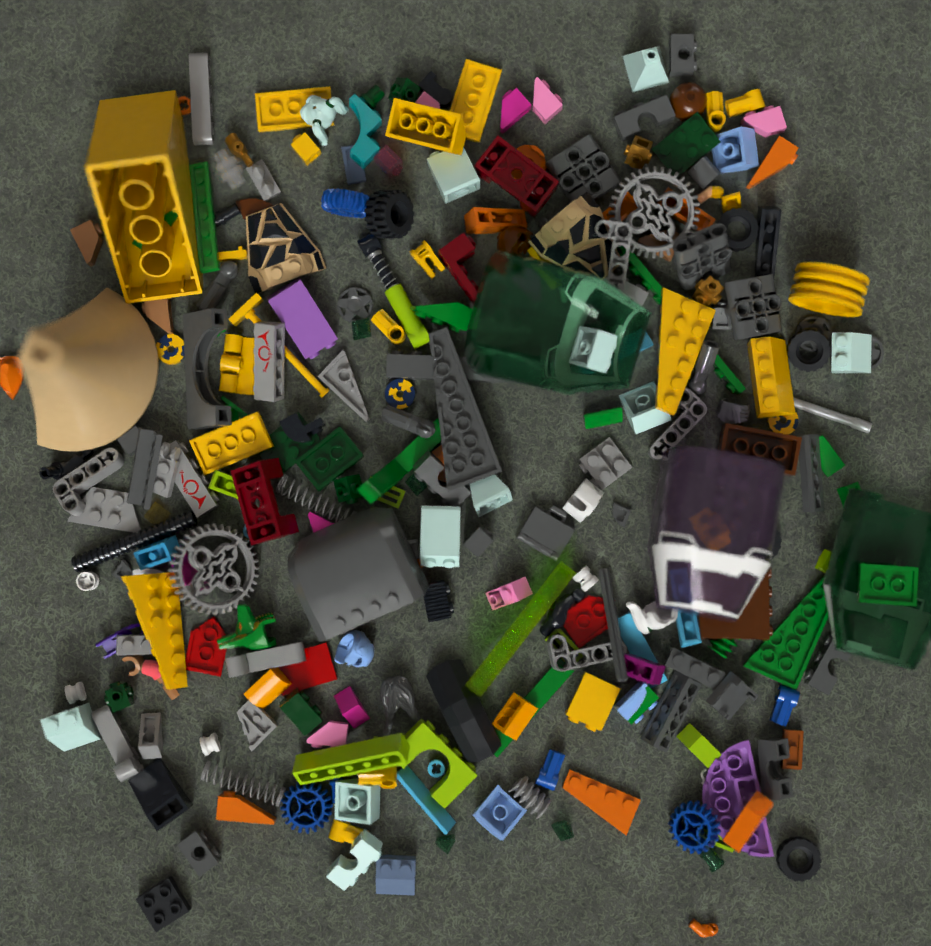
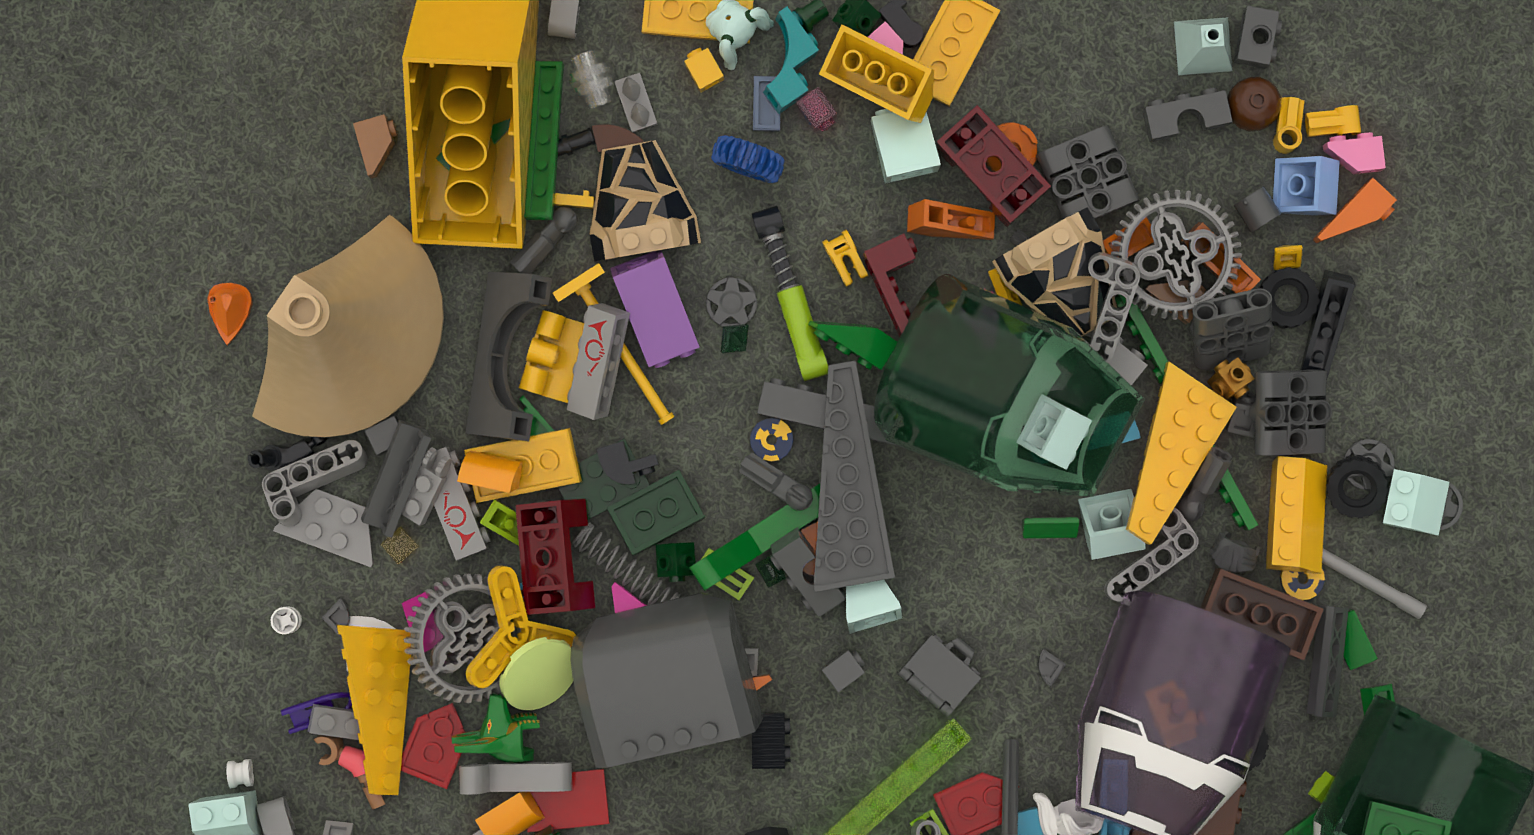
camera: 10 degrees right, 0 degrees up
(126, 696) = (311, 788): dark green brick -> none
(134, 541) = (361, 577): black piece -> none
(156, 553) = (390, 599): dark azure brick -> none
(160, 313) = (456, 264): medium nougat slope -> none
(163, 345) = (459, 304): yellow piece -> none
(209, 451) = (490, 471): none -> light orange brick
(238, 148) = (609, 53): pearl gold piece -> none
(240, 570) = (508, 605): none -> yellow piece
(267, 585) = (537, 674): none -> yellowish green tile
(341, 381) = (693, 406): light grey wing -> none
(355, 649) = (642, 787): light blue helmet -> none
(388, 326) = (772, 341): yellow piece -> none
(389, 214) = (804, 186): black tyre -> none
(440, 536) = (791, 652): light aqua slope -> none
(509, 593) = (872, 749): bright pink slope -> none
(513, 108) = (1005, 68): dark pink slope -> none
(514, 239) = (973, 254): reddish brown cylinder -> none
(545, 103) = (1051, 67): bright pink slope -> none
(558, 612) = (937, 787): black arm -> none
(583, 500) = (1001, 639): white piece -> none
(585, 578) = (983, 748): white wheel -> none
(604, 464) = (1040, 593): light grey plate -> none
(638, 152) = (1170, 163): pearl gold brick -> none
(686, 145) = (1239, 165): dark green plate -> none
(710, 192) = (1262, 237): arm -> none
(829, 289) = (1400, 409): yellow wheel -> none

